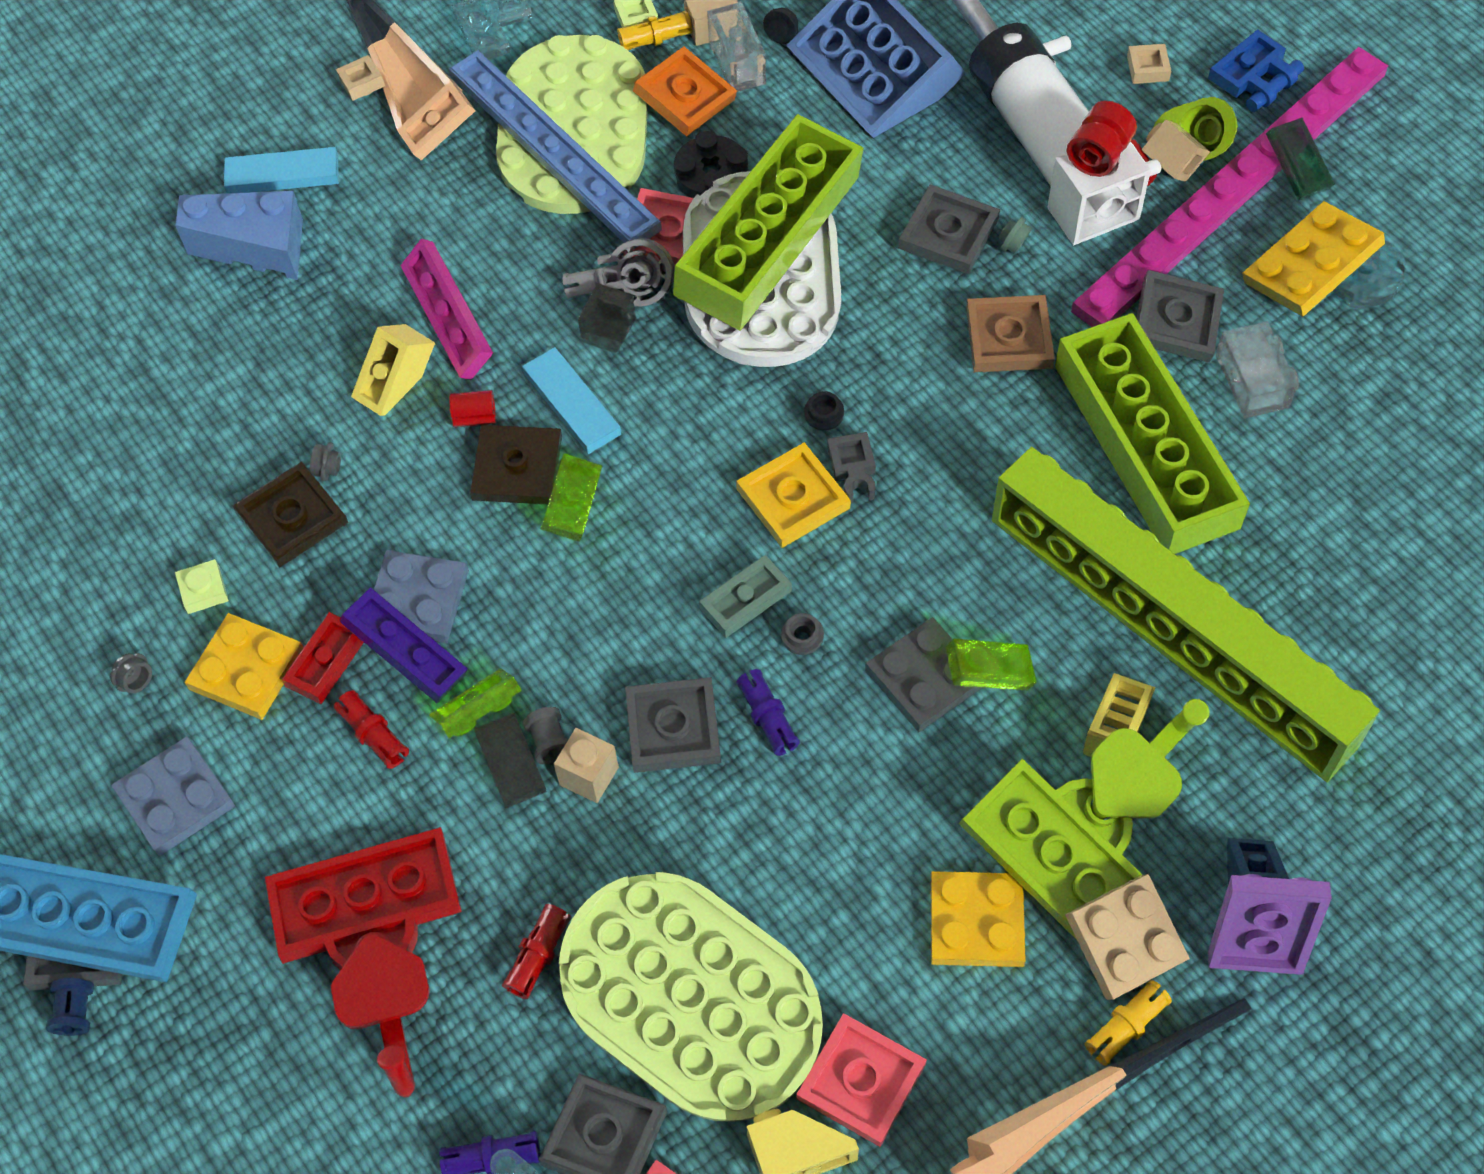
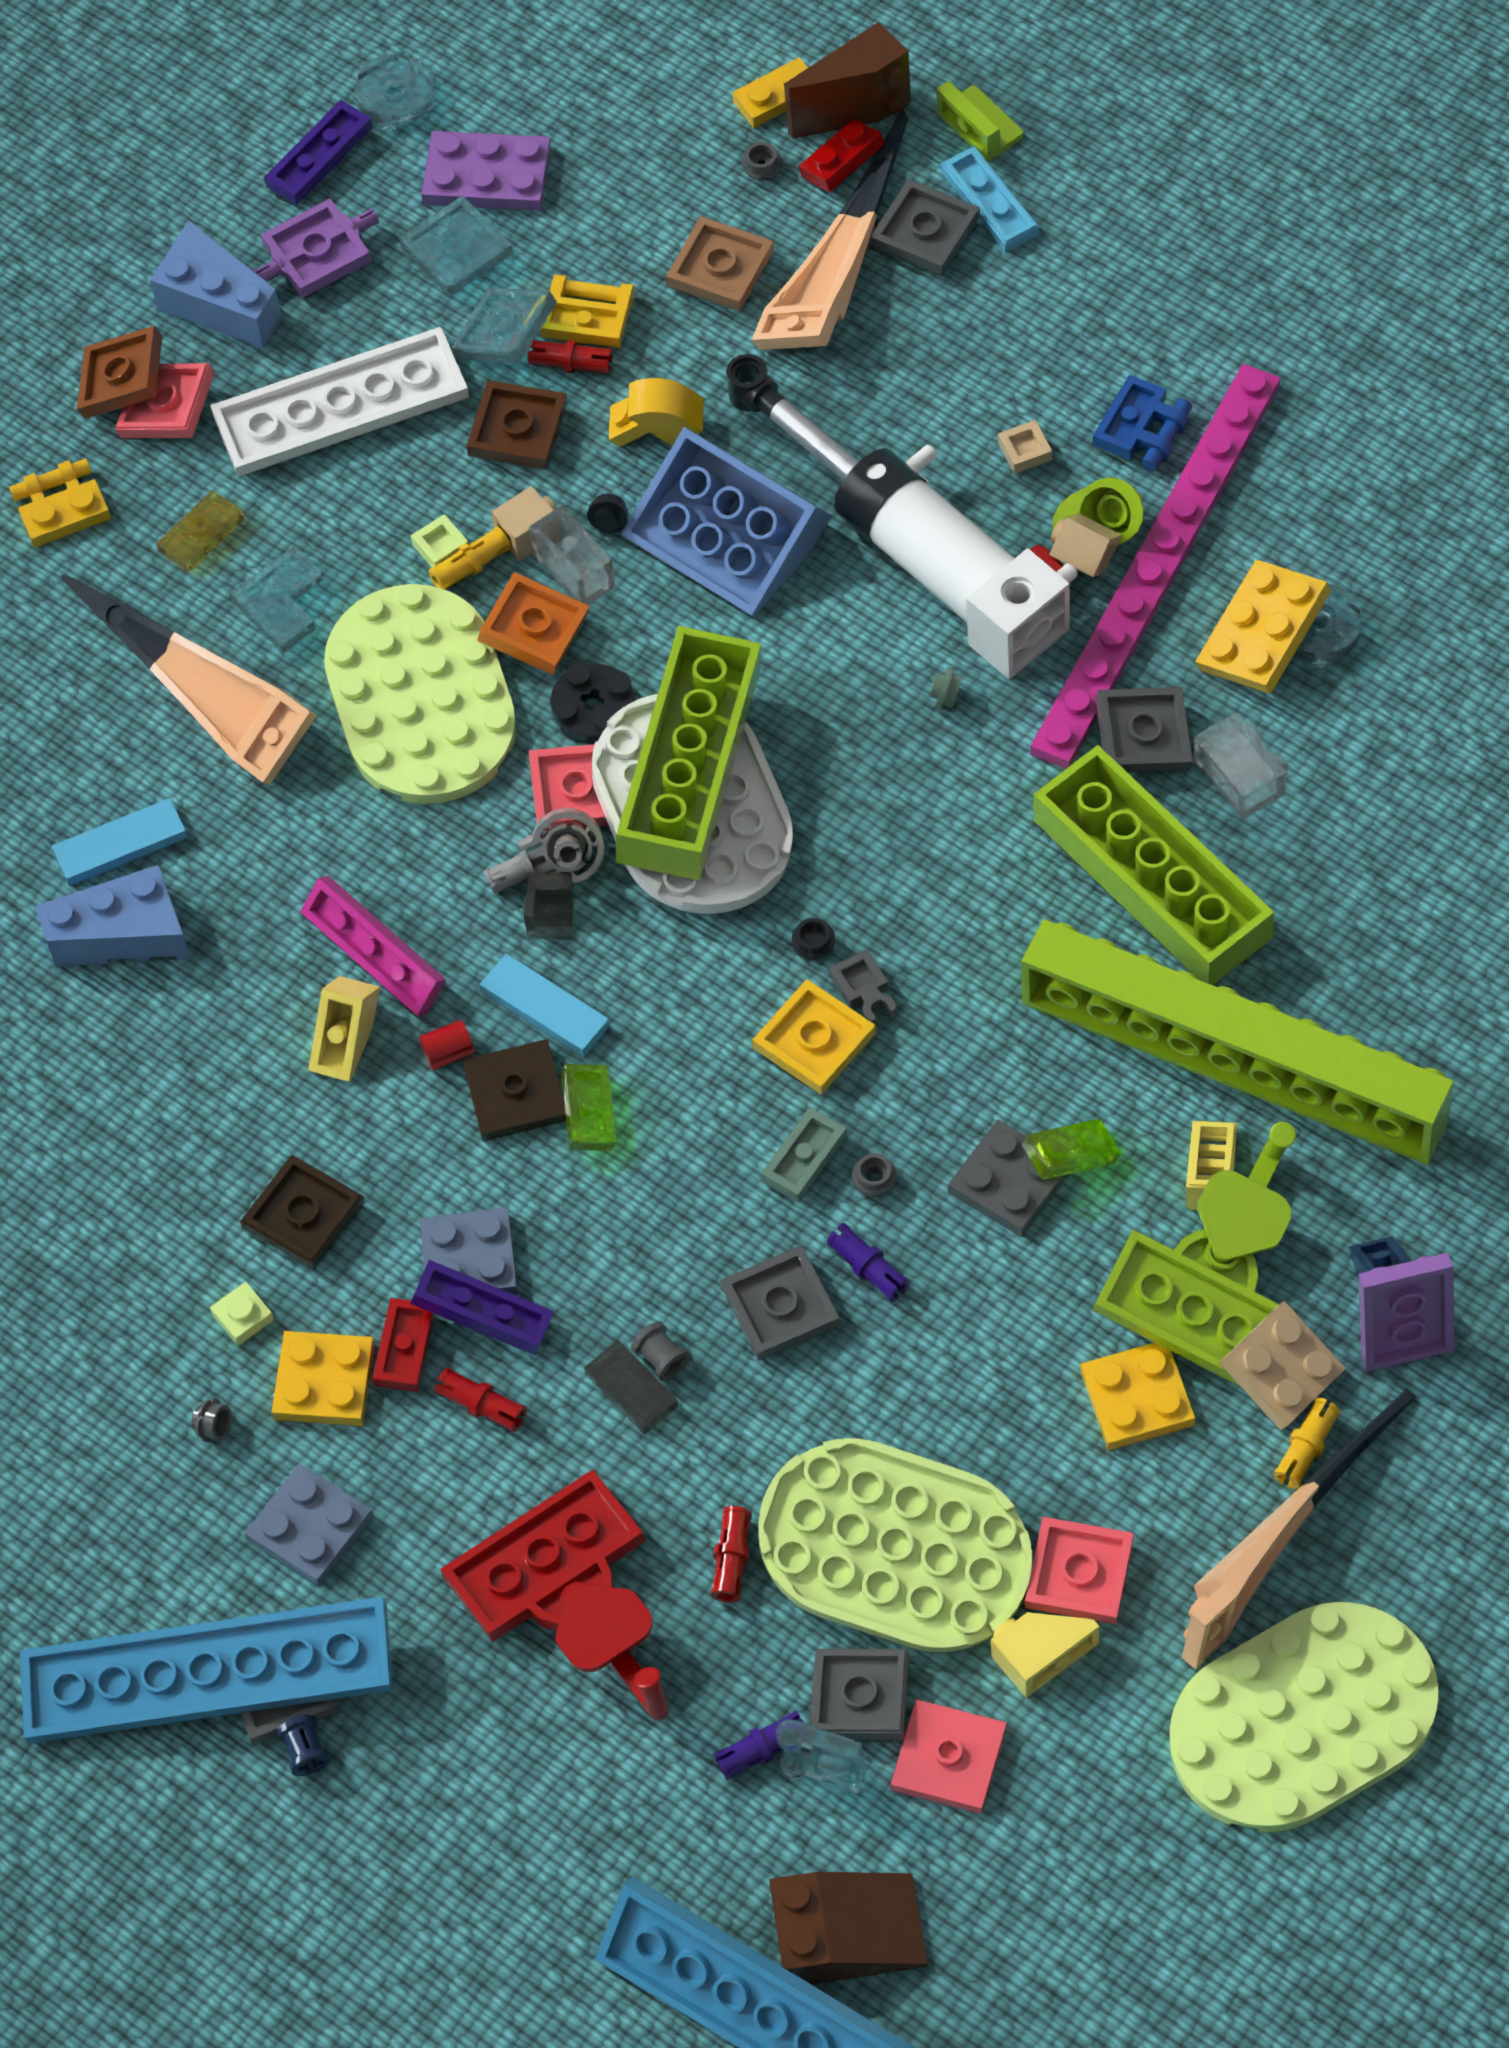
camera: 15 degrees left, 0 degrees up
(325, 461) = (314, 1146): dark grey plate -> none
(360, 77) = (162, 708): tan plate -> none
(486, 696) = (575, 1342): clear neon green plate -> none
(555, 149) = (417, 732): medium blue tile -> none
(586, 765) = (712, 1367): tan brick -> none
(949, 229) = (874, 700): dark grey plate -> none
(1010, 333) = (976, 799): medium nougat plate -> none
(1101, 138) = (1010, 567): red wheel -> none
(1300, 159) = (1218, 516): clear green tile -> none

